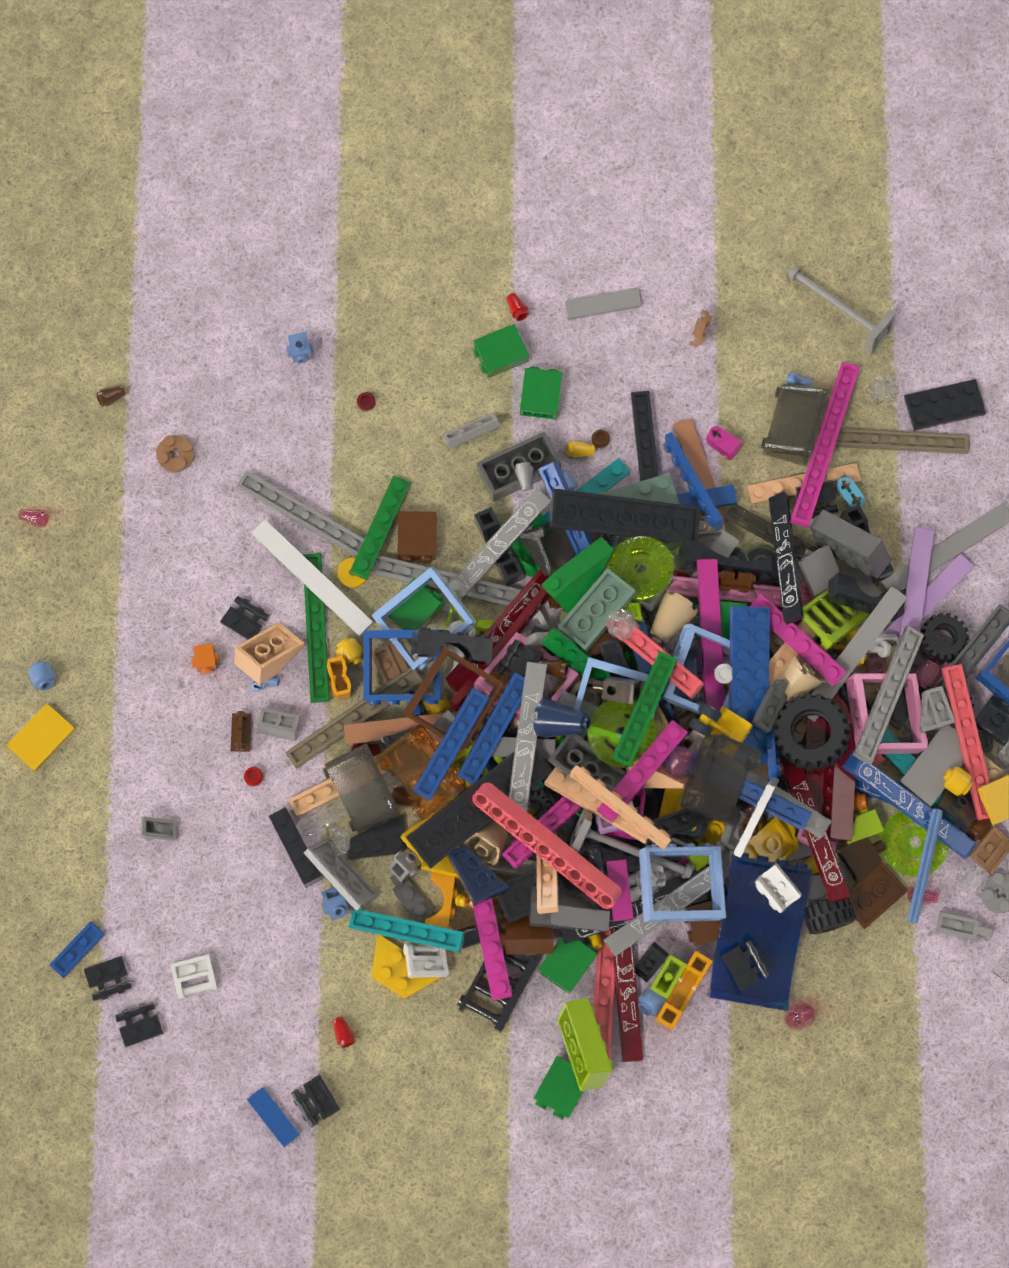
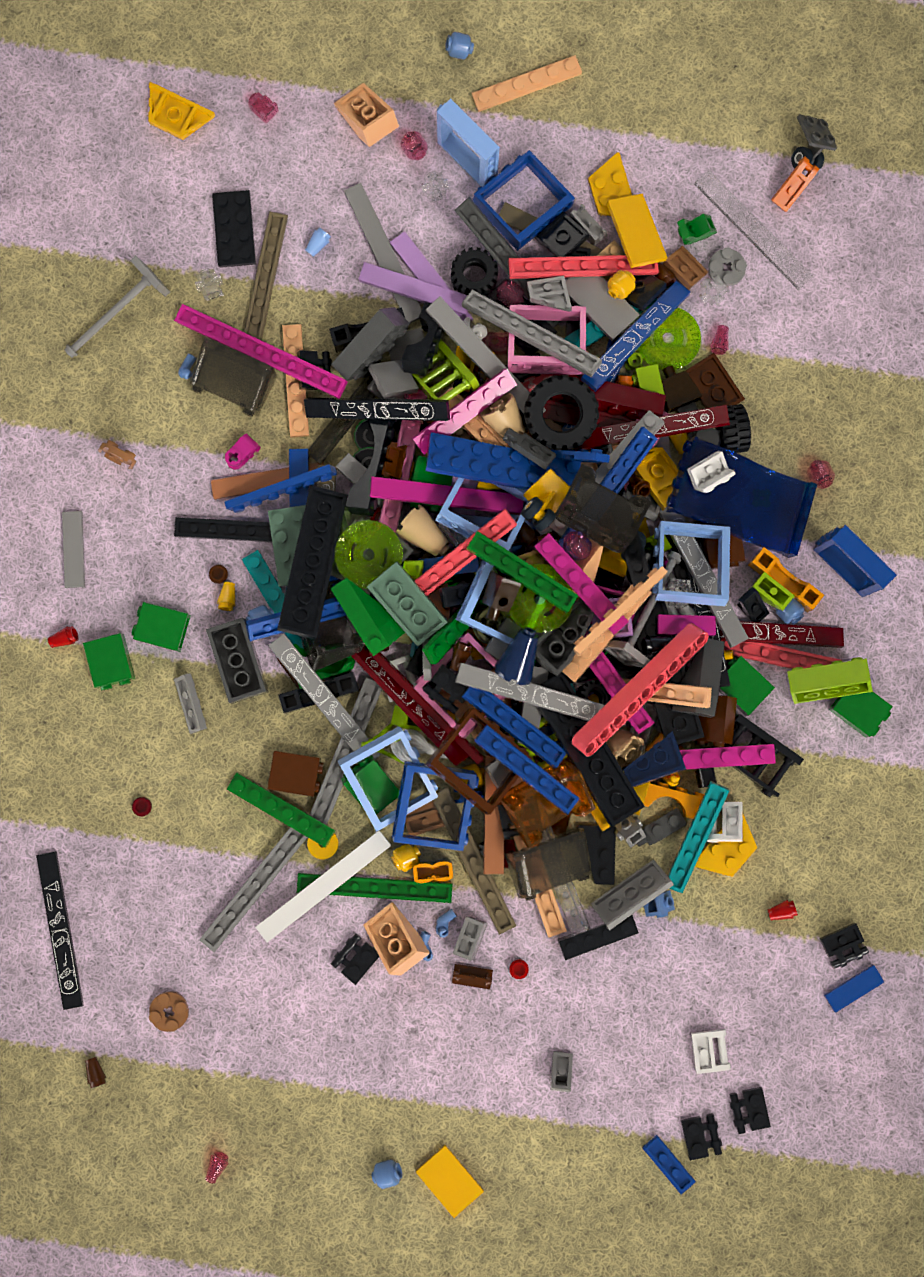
camera: 85 degrees left, 10 degrees up
(205, 658) = (392, 1004): orange brick -> none
(238, 345) = (60, 930): none -> black tile
(290, 697) = (443, 922): none -> medium blue arm
(299, 347) = (67, 870): medium blue brick -> none
(339, 838) = (596, 889): clear bracket -> none
(475, 649) = (423, 778): black arch -> none
(525, 475) = (251, 655): light grey cone -> none
(621, 624) = (429, 581): clear brick -> none
(712, 1050) = (857, 564): none -> blue window
(723, 673) = (492, 488): white plate -> none
(739, 967) = (773, 522): black plate -> none
(756, 816) = (643, 480): tile -> none
(853, 490) = (315, 340): medium azure beam -> none
(879, 807) = (635, 356): none -> lime plate
(925, 865) = (697, 331): medium blue axle -> none
(946, 484) = (317, 242): none -> light blue cone
(962, 927) = (755, 309): light grey hinge -> none

